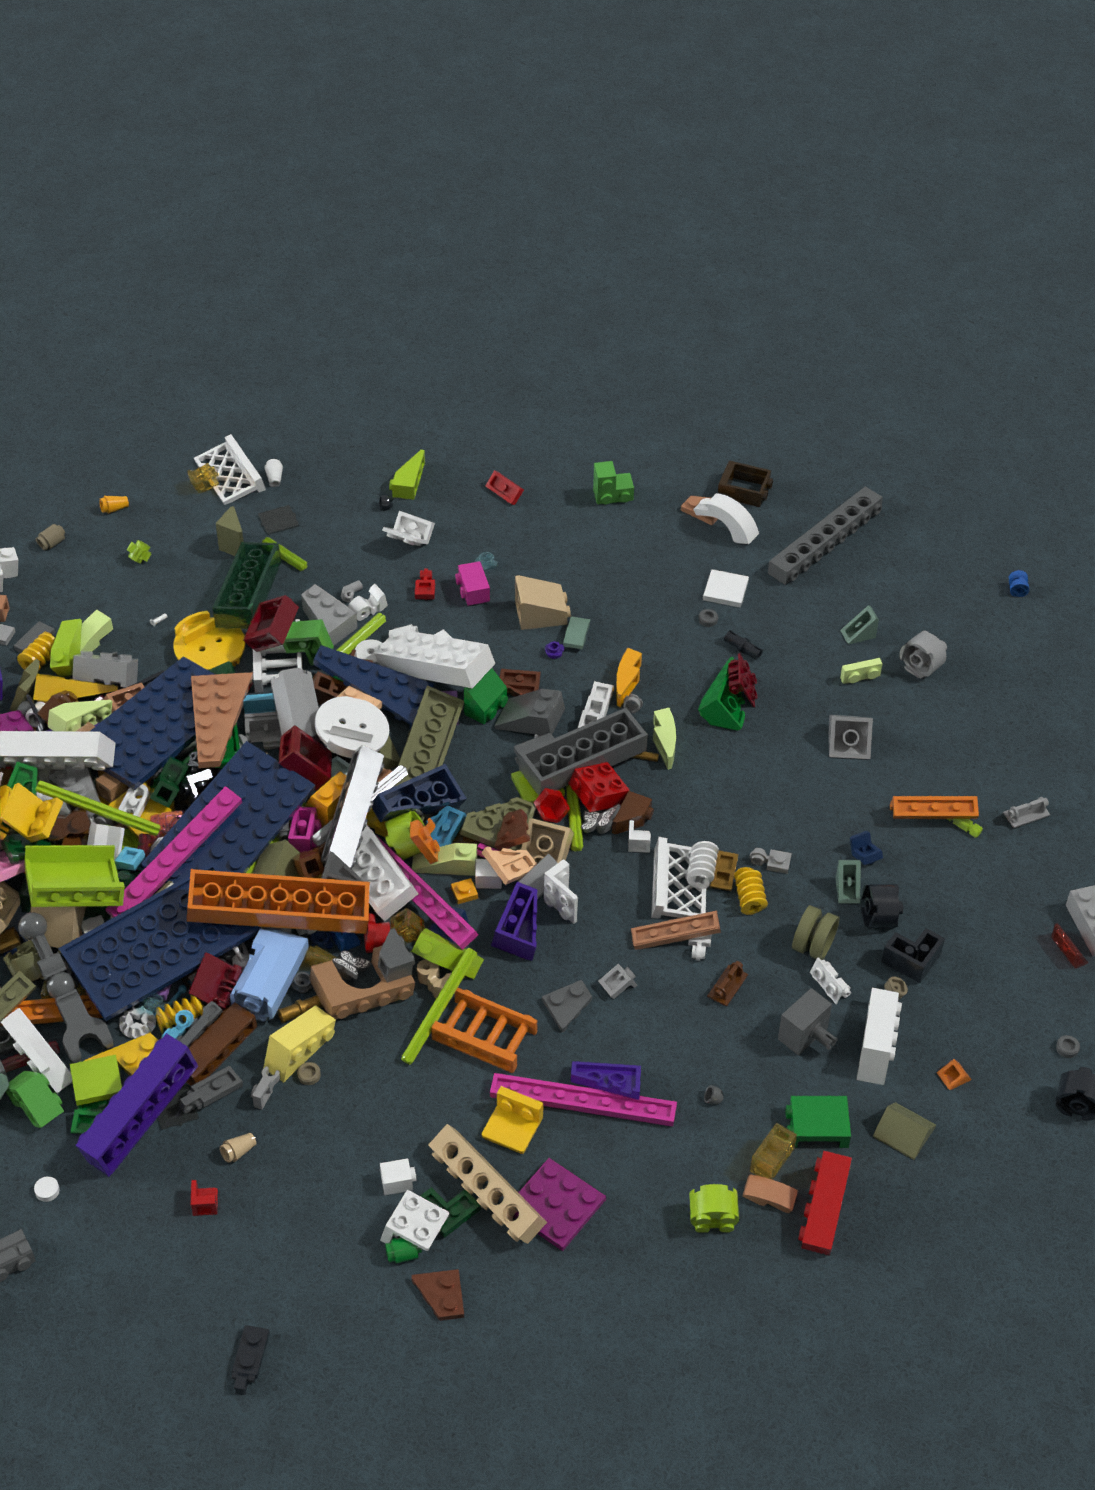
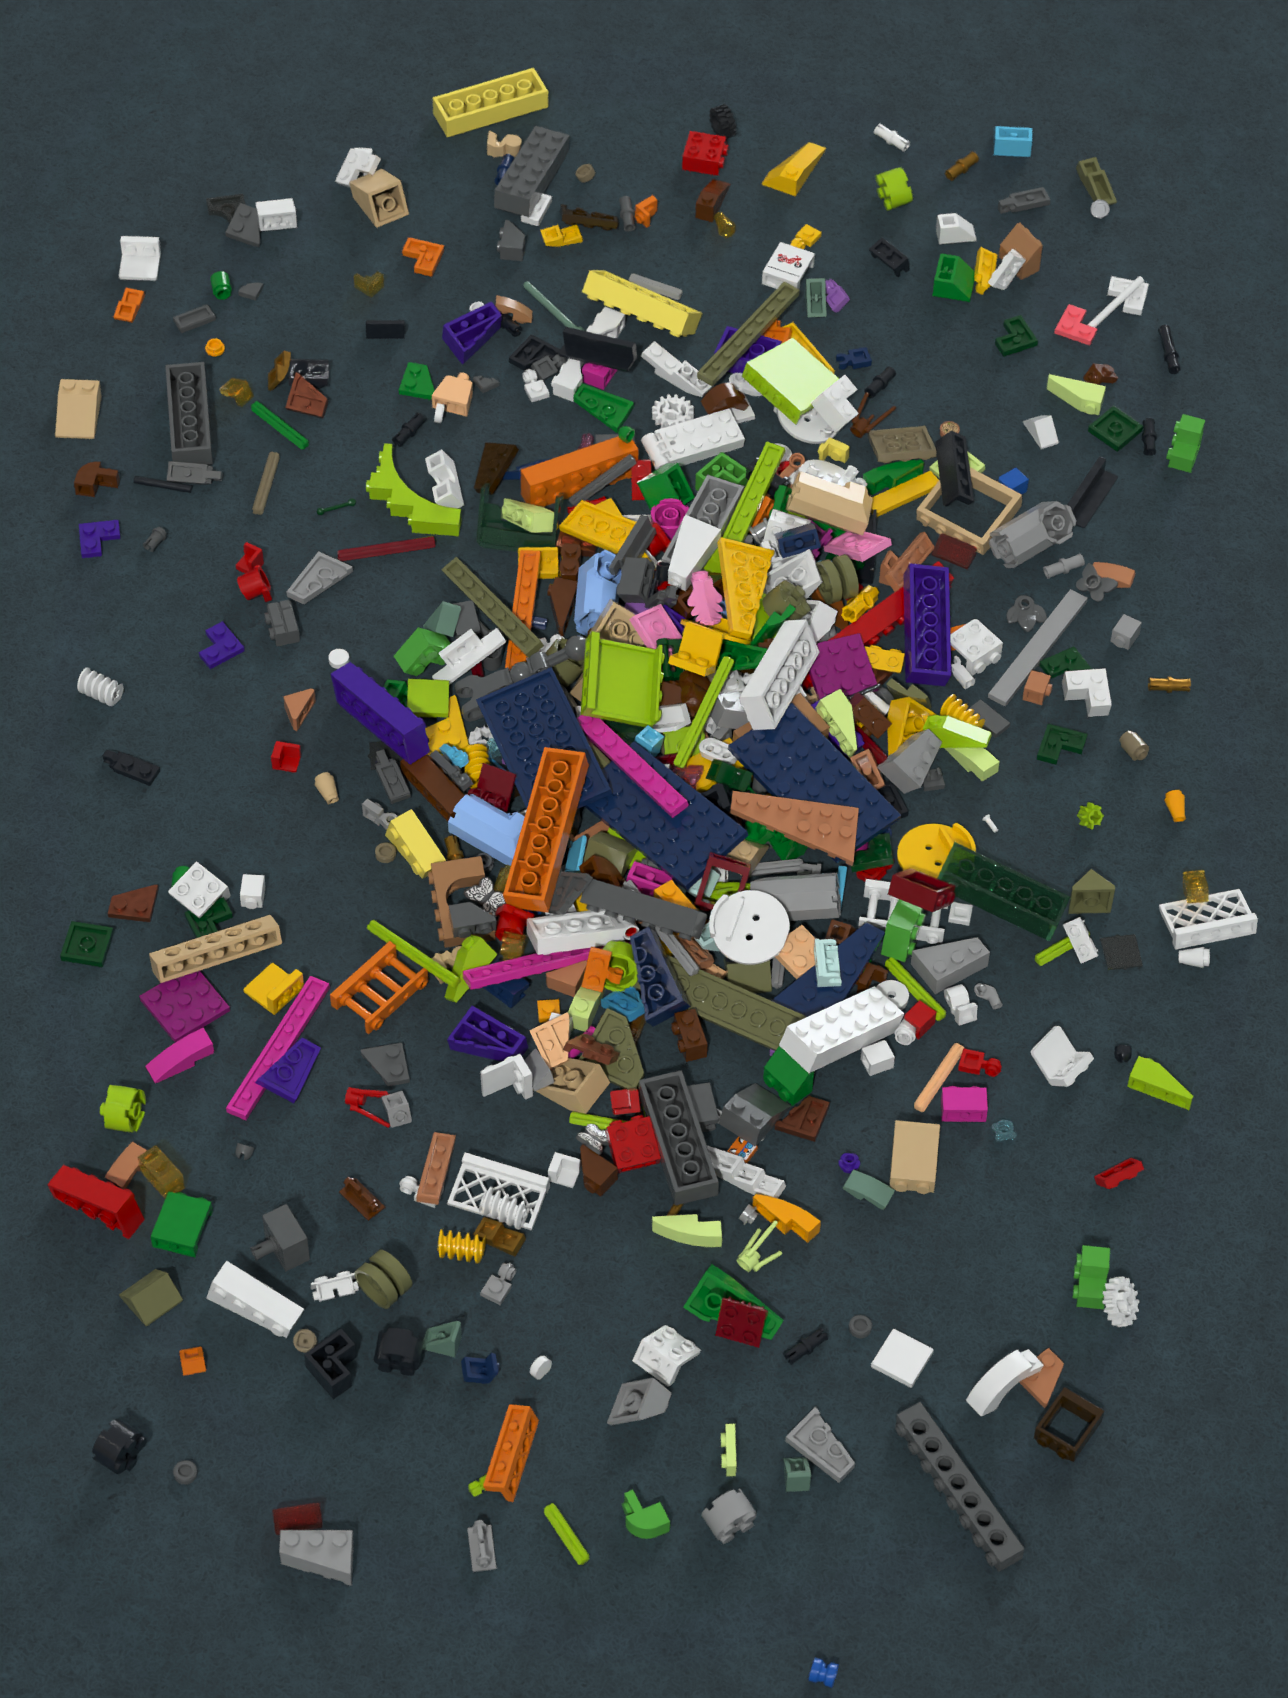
camera: 105 degrees right, 5 degrees up
(44, 1312) = (224, 648): none -> dark purple plate
(54, 587) = (1059, 739): none -> dark green plate
(132, 1204) = (298, 706): none -> nougat slope
(138, 1426) = (99, 687): none -> white piece
(282, 534) = (1080, 940): none -> white hinge
(369, 679) = (826, 963): none -> light aqua hinge
(392, 622) = (921, 1017): none -> red panel
(428, 873) = (567, 979): none -> nougat slope
(446, 609) = (938, 1077): none -> light nougat axle
(468, 771) = (690, 1035): none -> reddish brown brick
(511, 1321) = (86, 944): none -> dark green plate
(568, 722) = (743, 1149): none -> tile
(619, 1017) = (357, 1097): none -> red plant
(626, 1182) = (180, 1056): none -> dark pink slope
(629, 464) = (1120, 1301): none -> white gear
(676, 693) = (750, 1257): none -> yellowish green plant
(792, 725) = (664, 1354): none -> white bracket
(829, 621) = (817, 1443): none -> light grey wing
(843, 809) = (540, 1367): none -> white tile
(948, 711) = (644, 1522): none -> bright green brick
(984, 761) = (566, 1534): none -> lime axle

